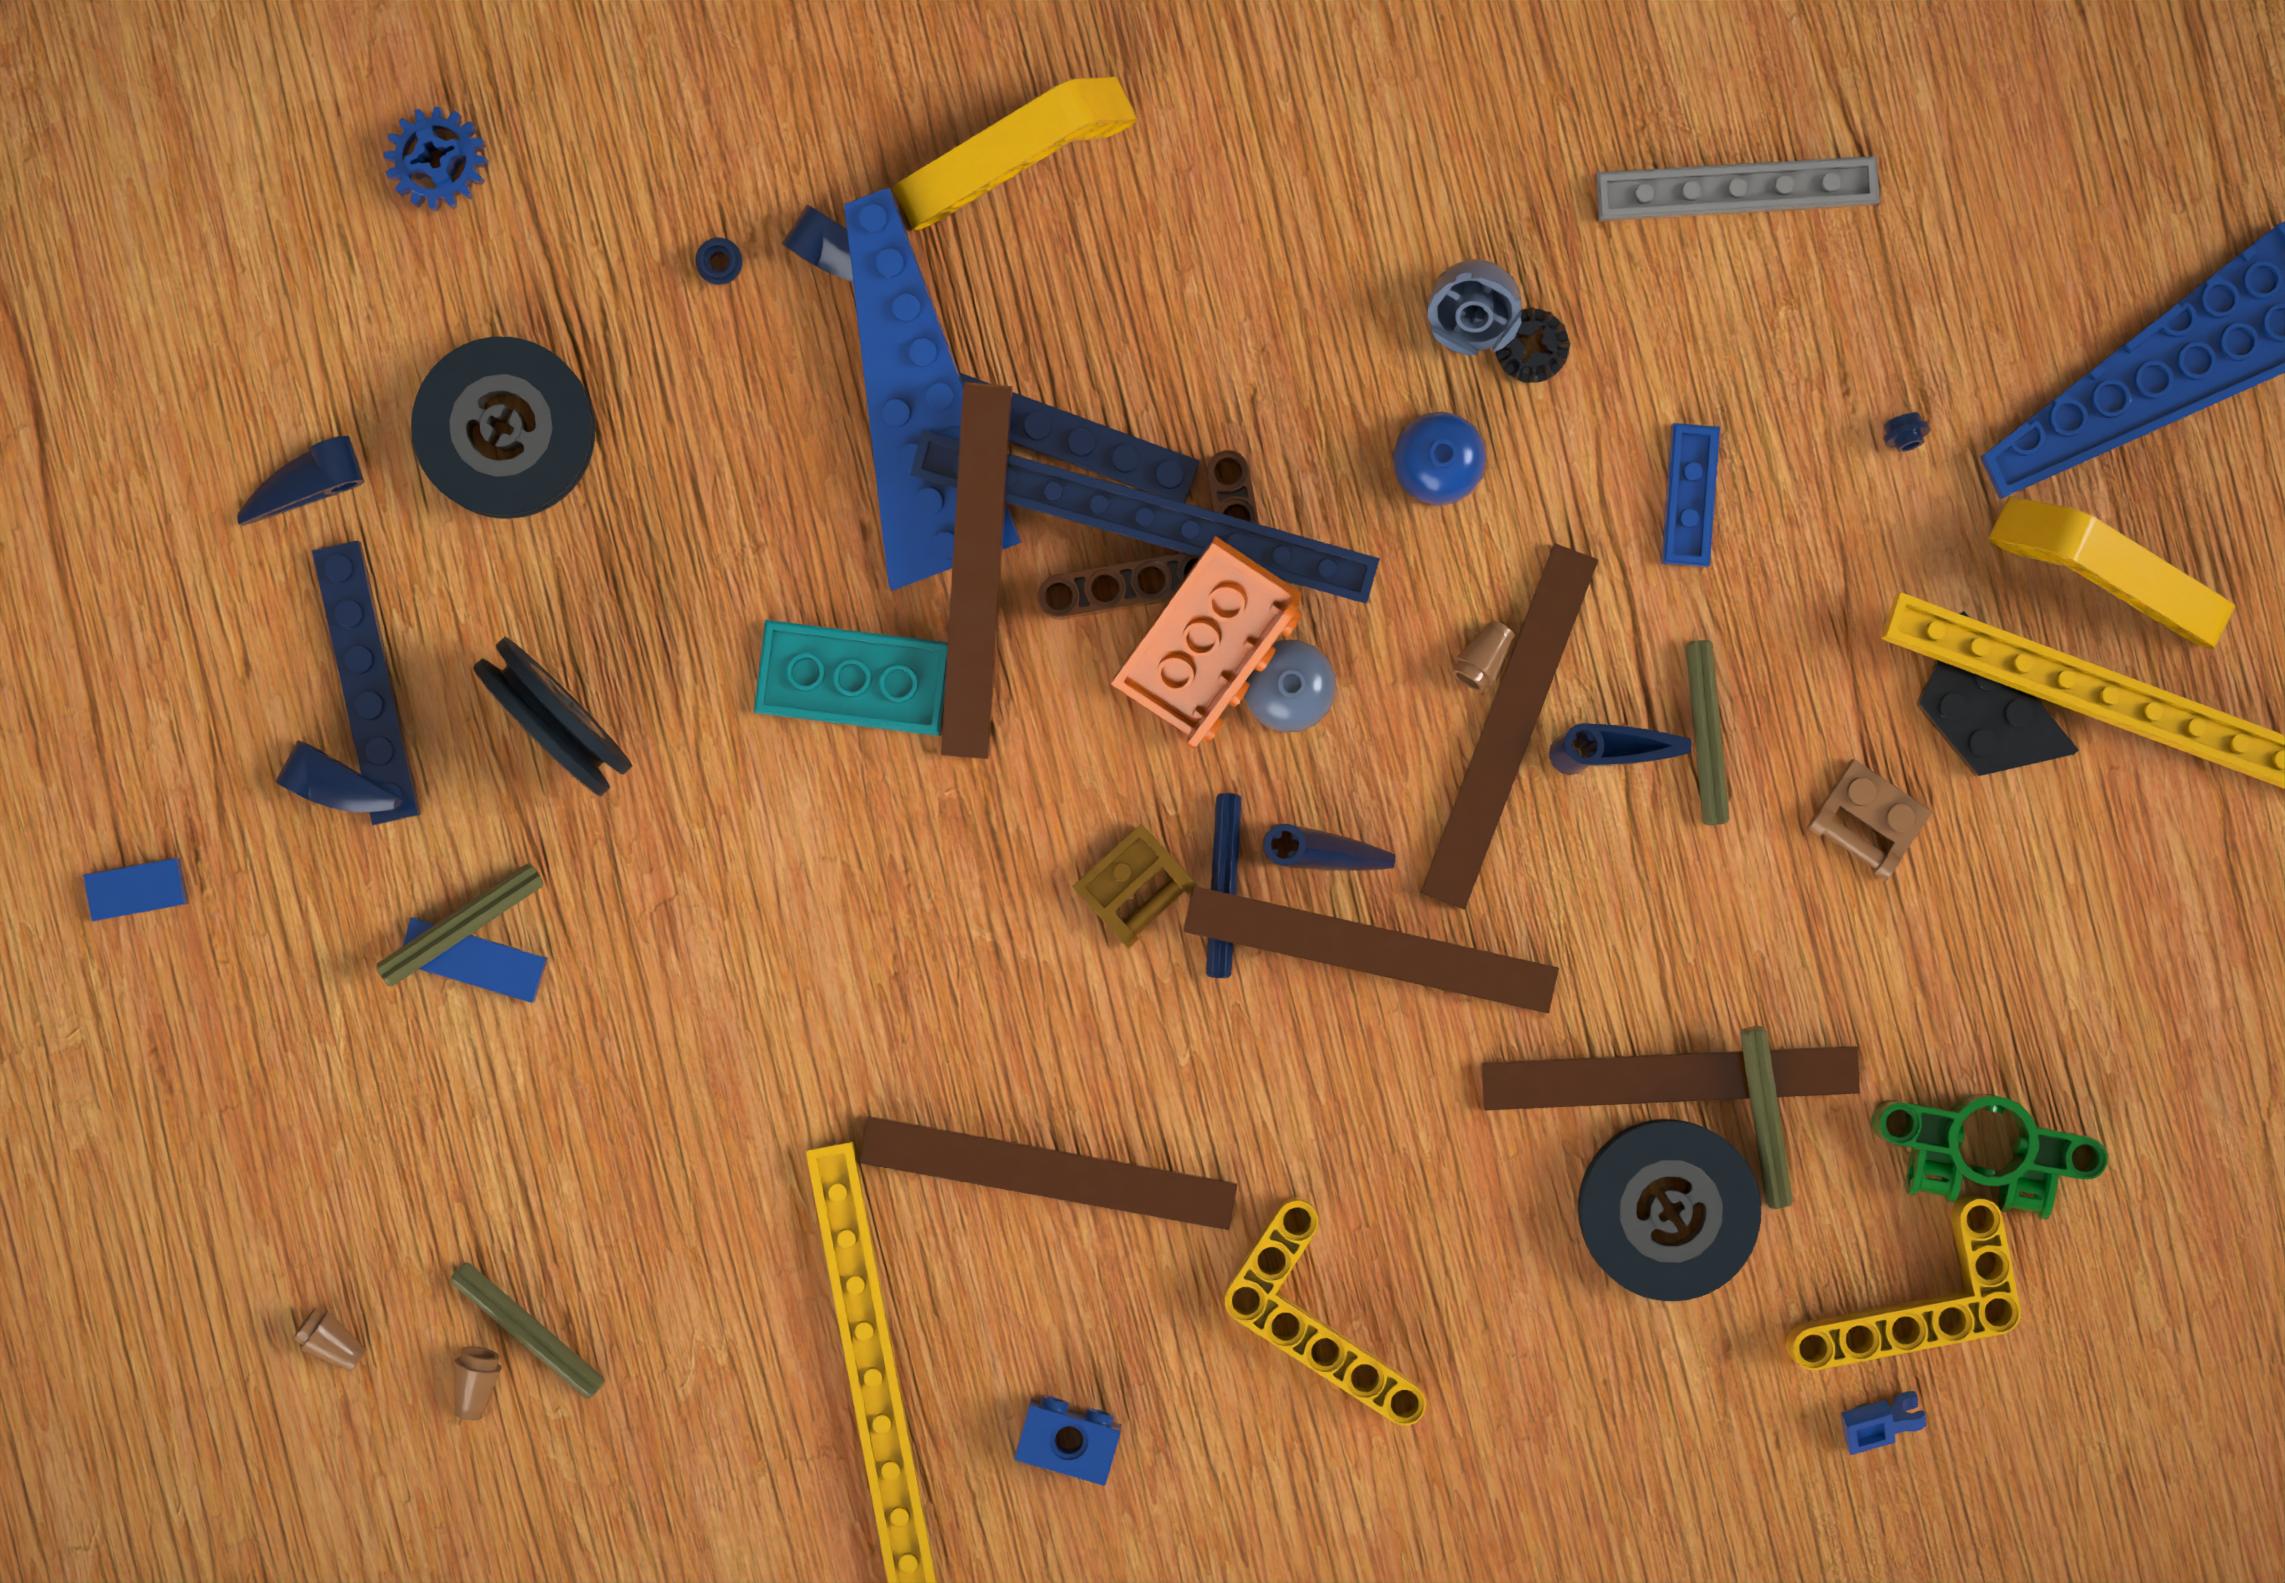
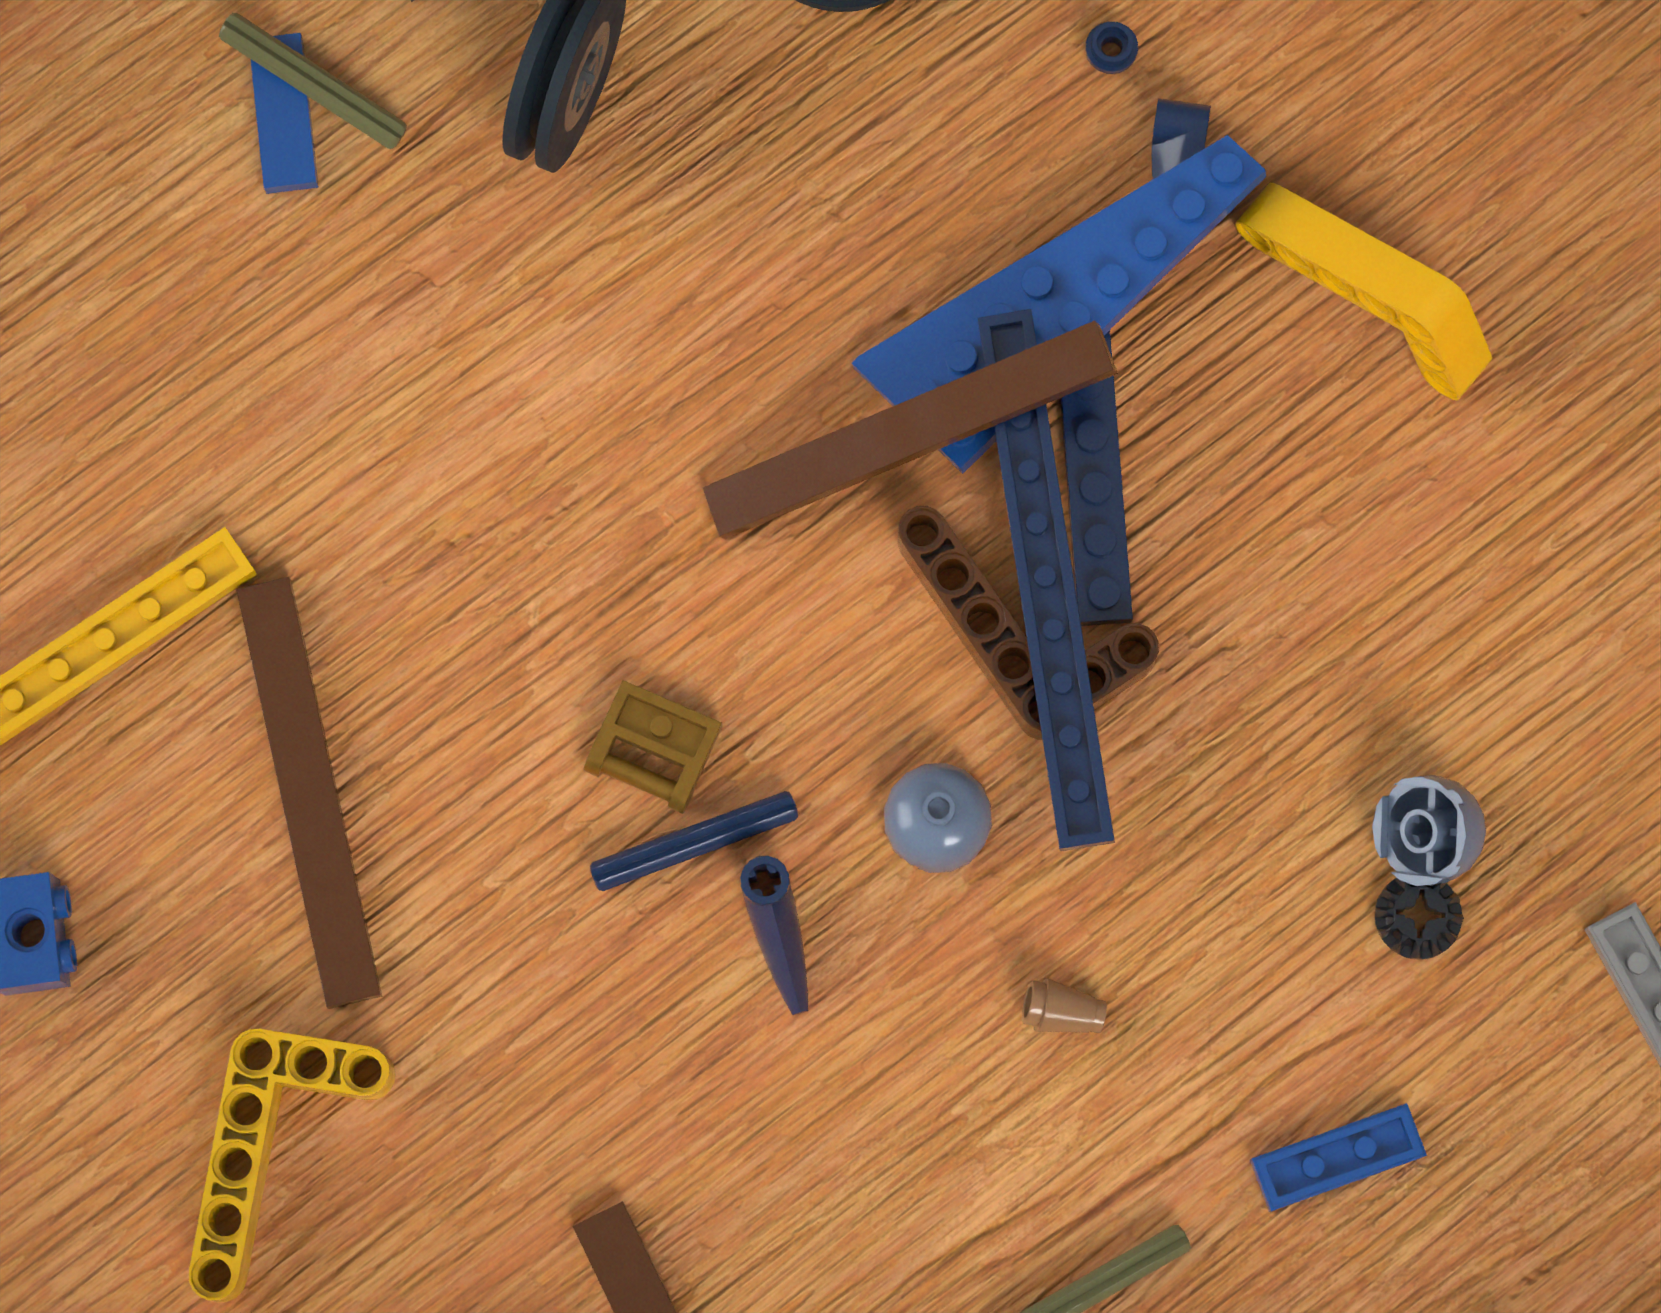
camera: 70 degrees right, 10 degrees down
(851, 678) = (741, 361): teal tile -> none
(1209, 641) = (945, 702): orange bracket -> none
(1370, 949) = (693, 1027): reddish brown tile -> none
(1439, 458) = (1252, 869): blue cylinder -> none
(1509, 726) = (1000, 1070): reddish brown tile -> none
(1613, 746) = (1029, 1191): dark blue piece -> none

